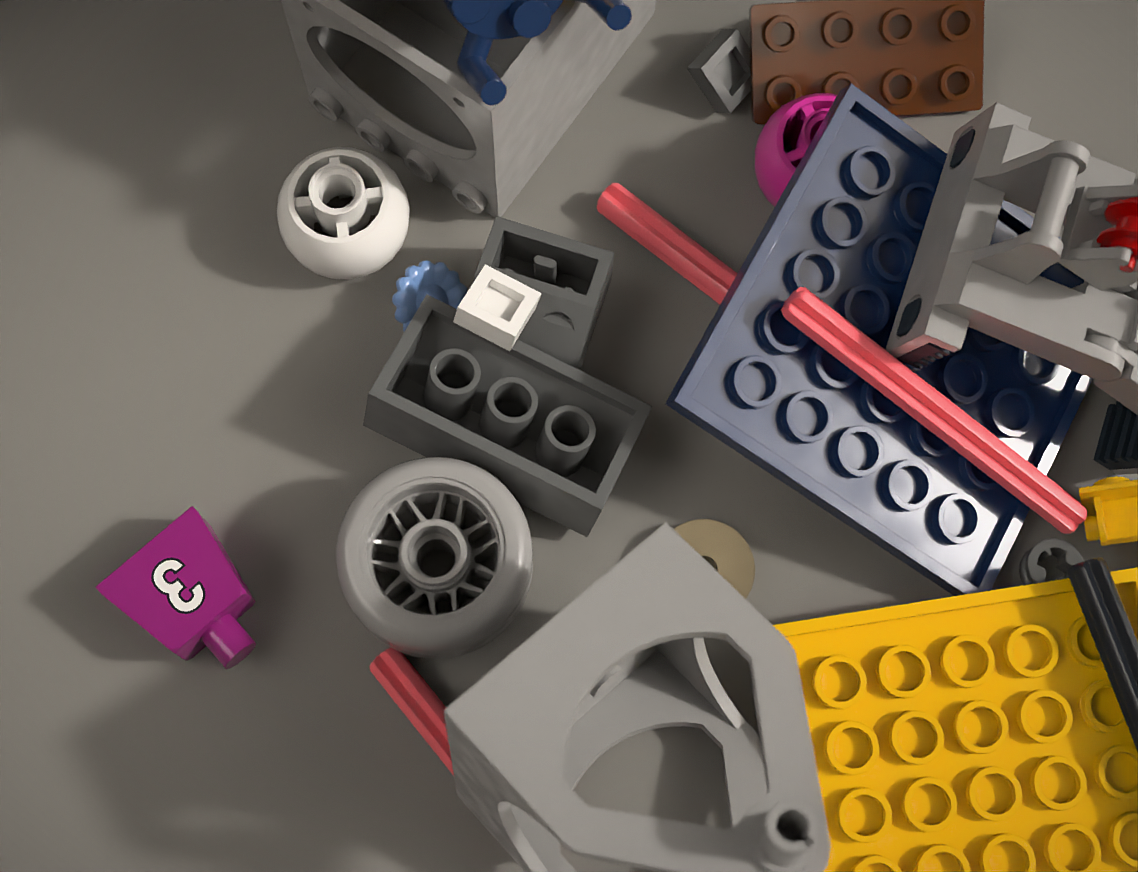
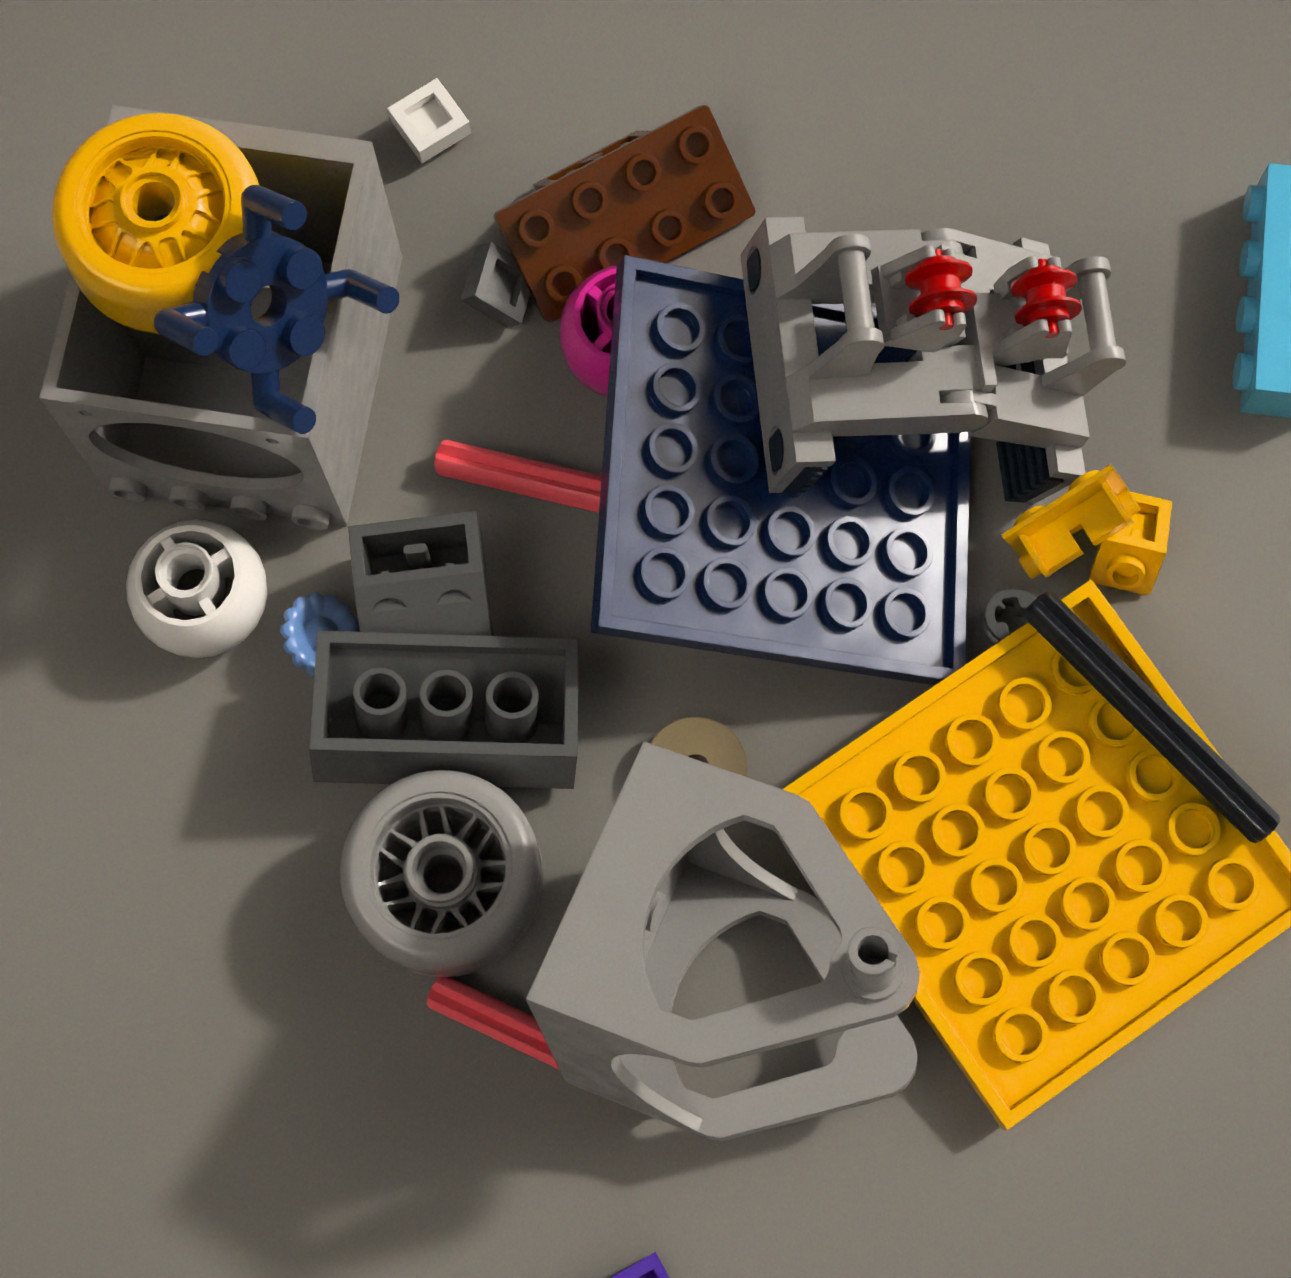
camera: 20 degrees left, 0 degrees up
(185, 592) = (219, 1017): magenta torso -> none
(497, 307) = (391, 613): white plate -> none
(933, 410) = (836, 524): coral axle -> none

